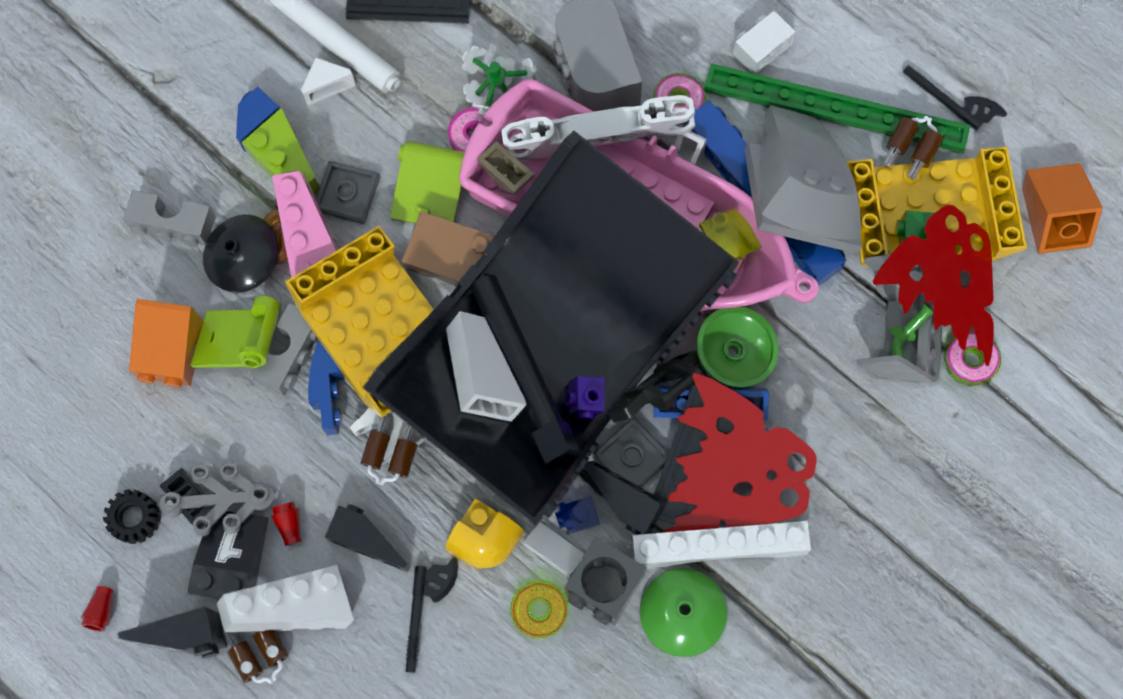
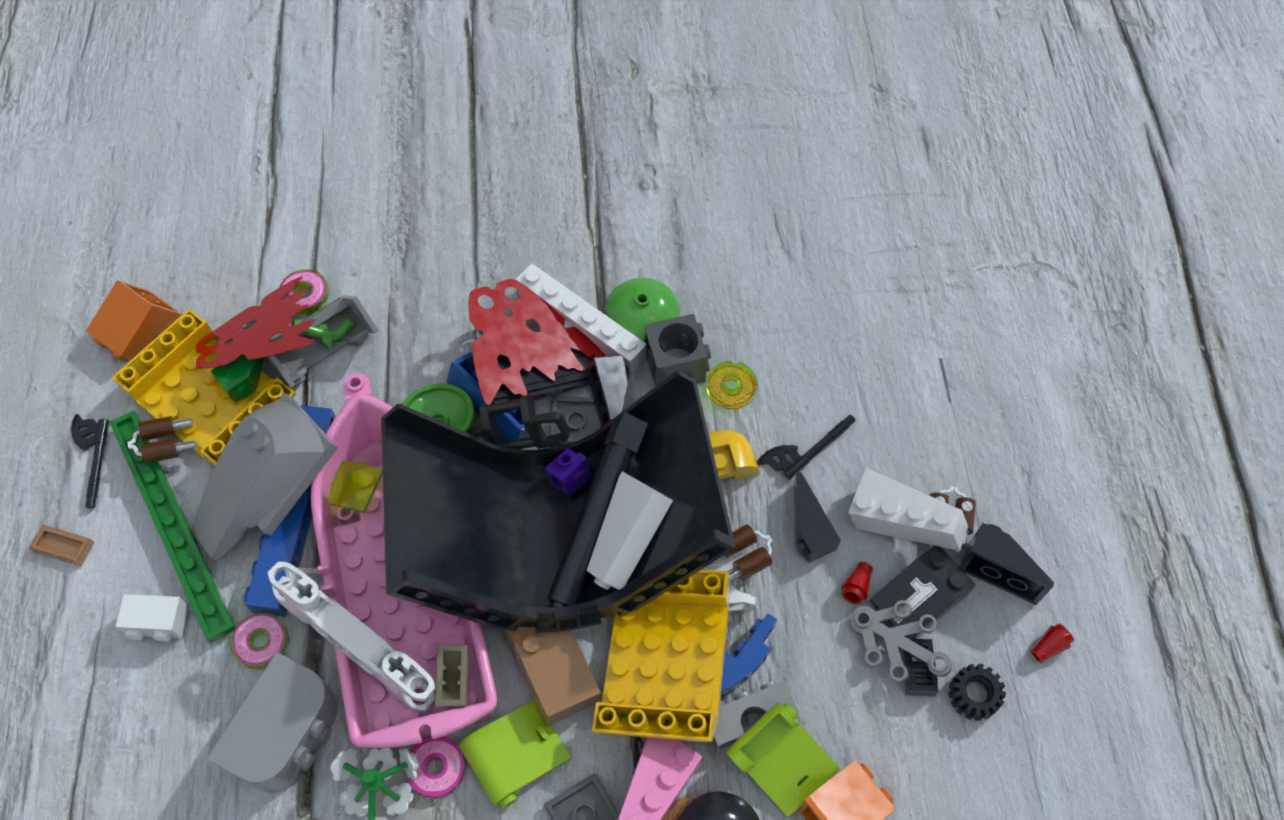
camera: 140 degrees left, 10 degrees down
(889, 31) = (61, 545): none -> medium nougat tile

